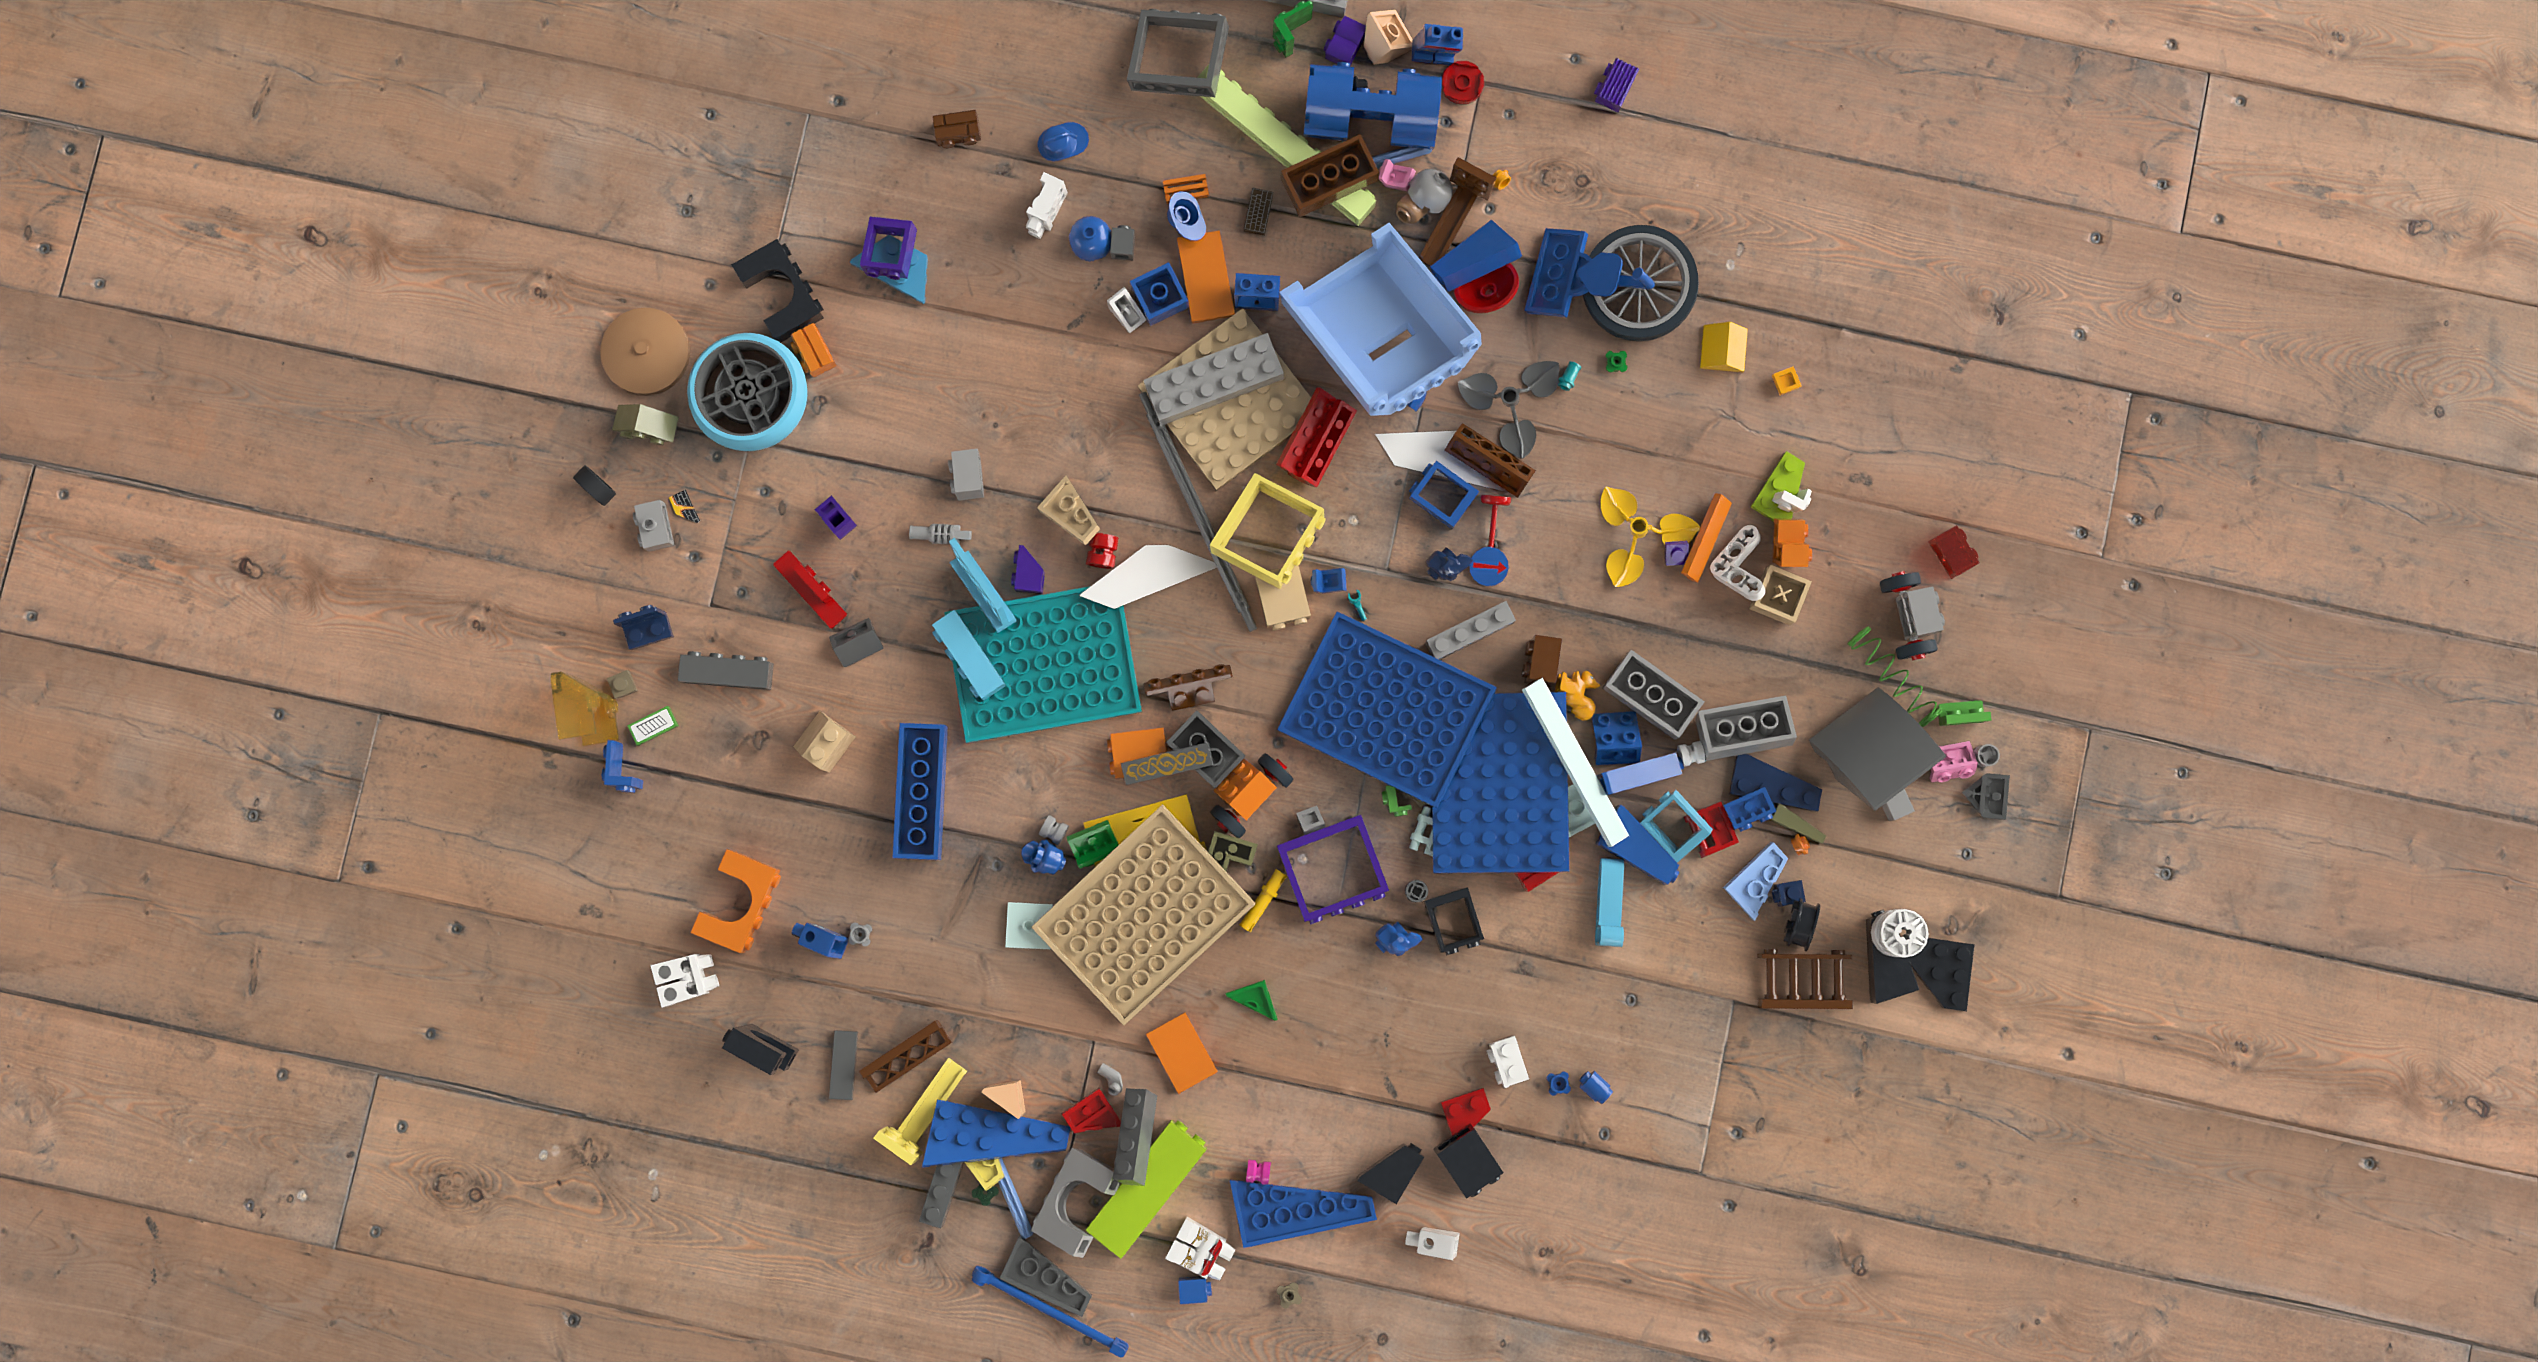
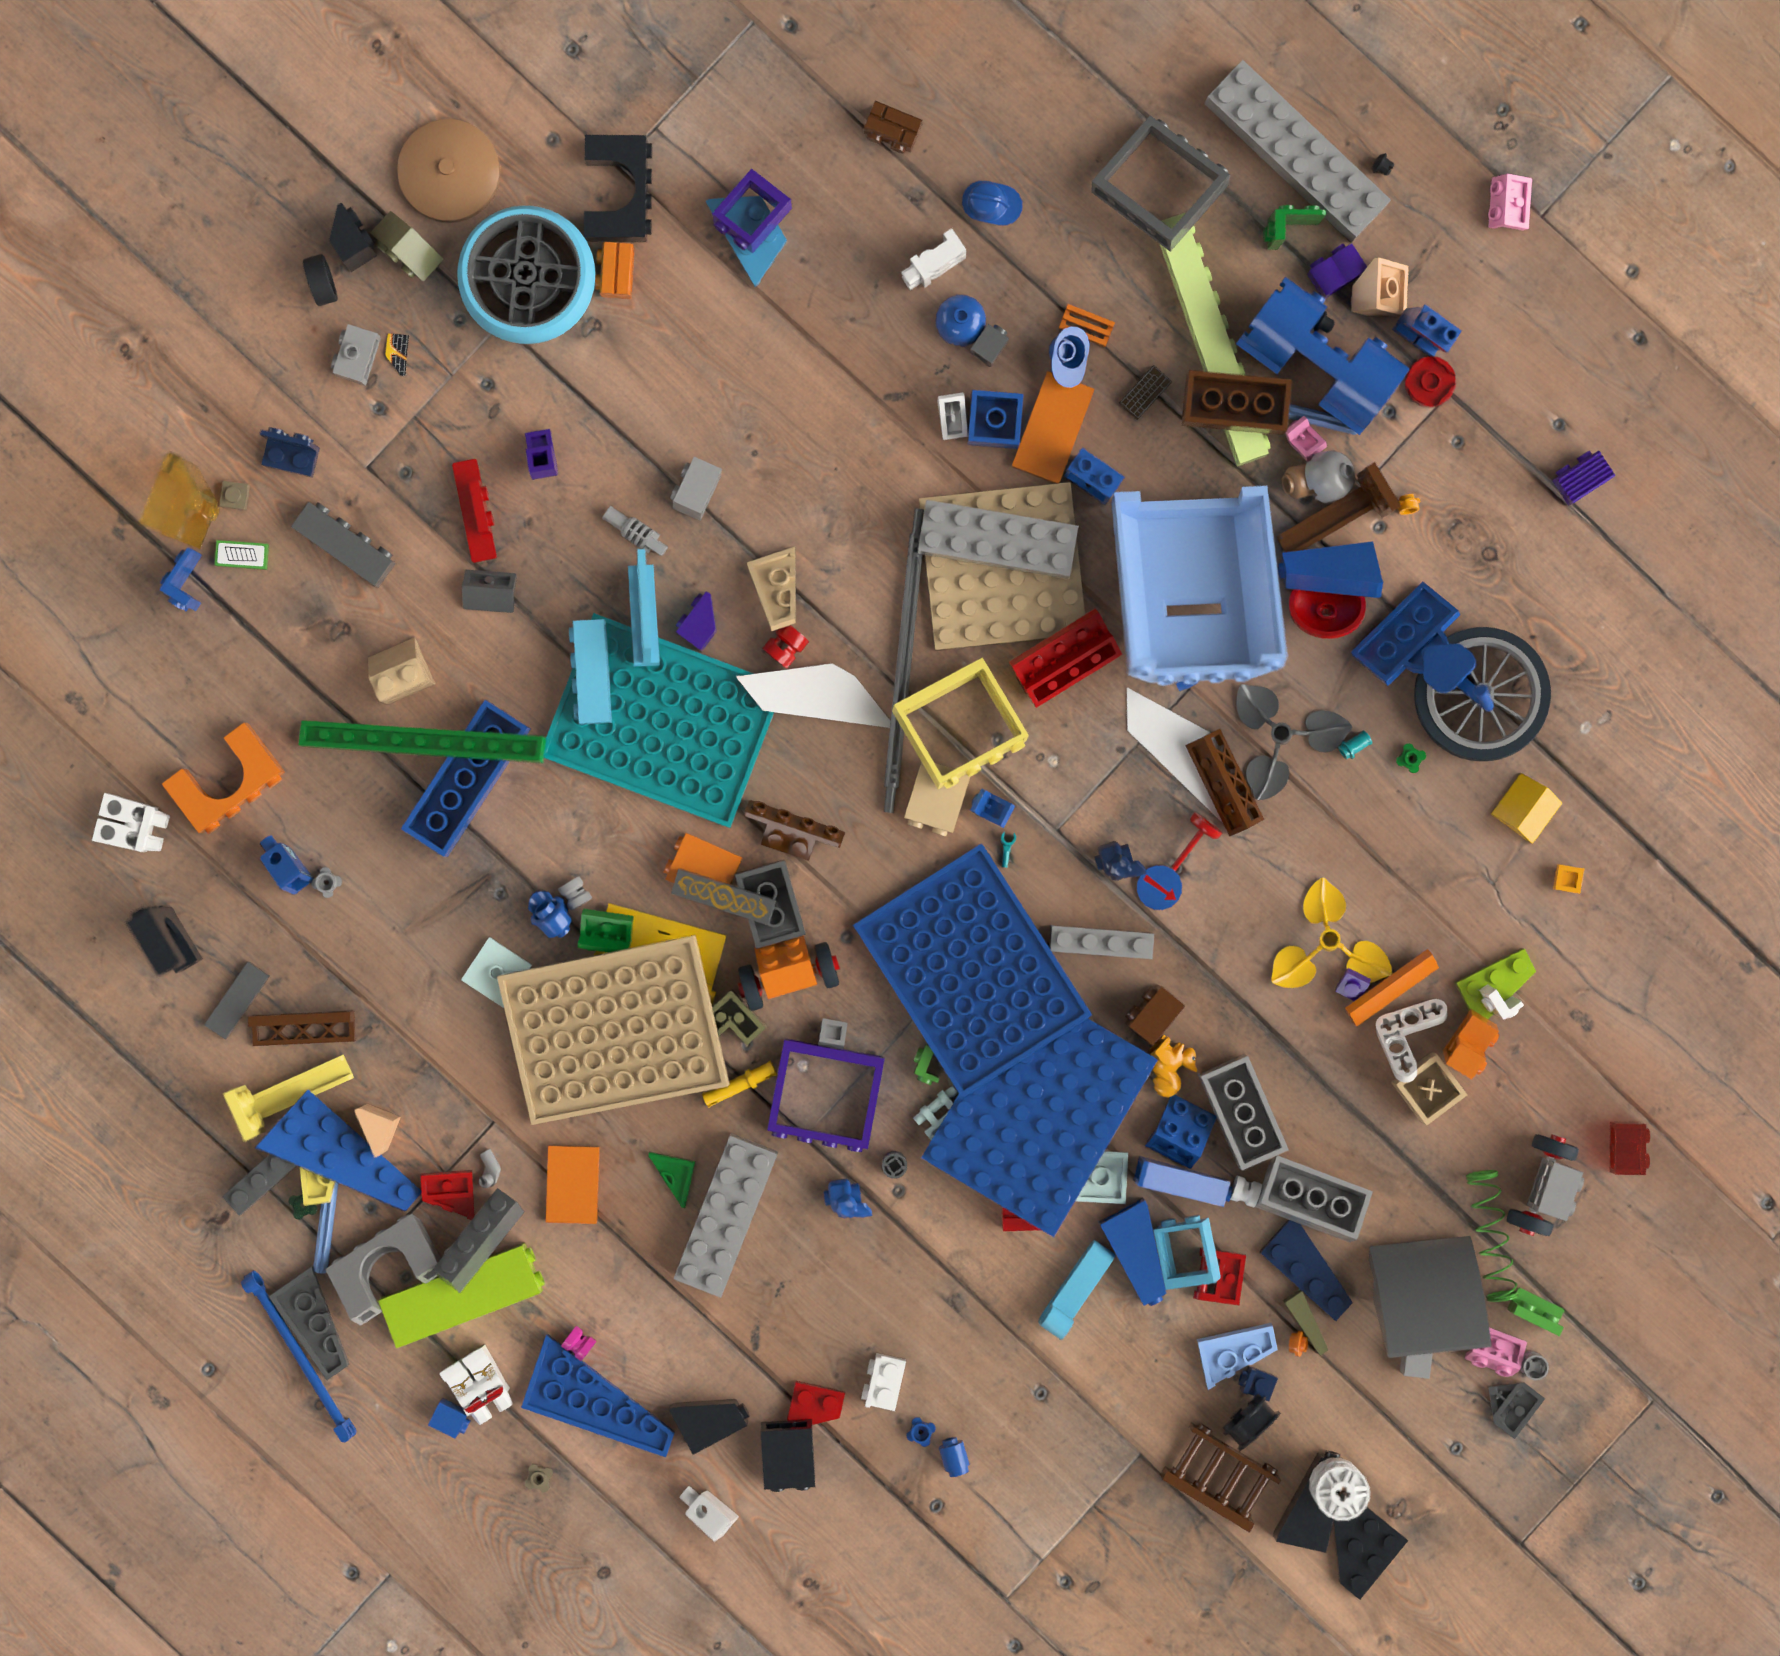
camera: 30 degrees right, 5 degrees up
(601, 444) = (349, 241): none -> black slope
(870, 782) = (422, 741): none -> green plate
(1312, 1006) = (725, 1215): none -> light grey brick
(1447, 898) = (919, 1189): black window -> none
(1461, 508) = (1168, 813): blue window -> none
(1575, 762) = (1124, 1134): light aqua tile -> none
(1749, 809) = (1269, 1280): blue bracket -> none

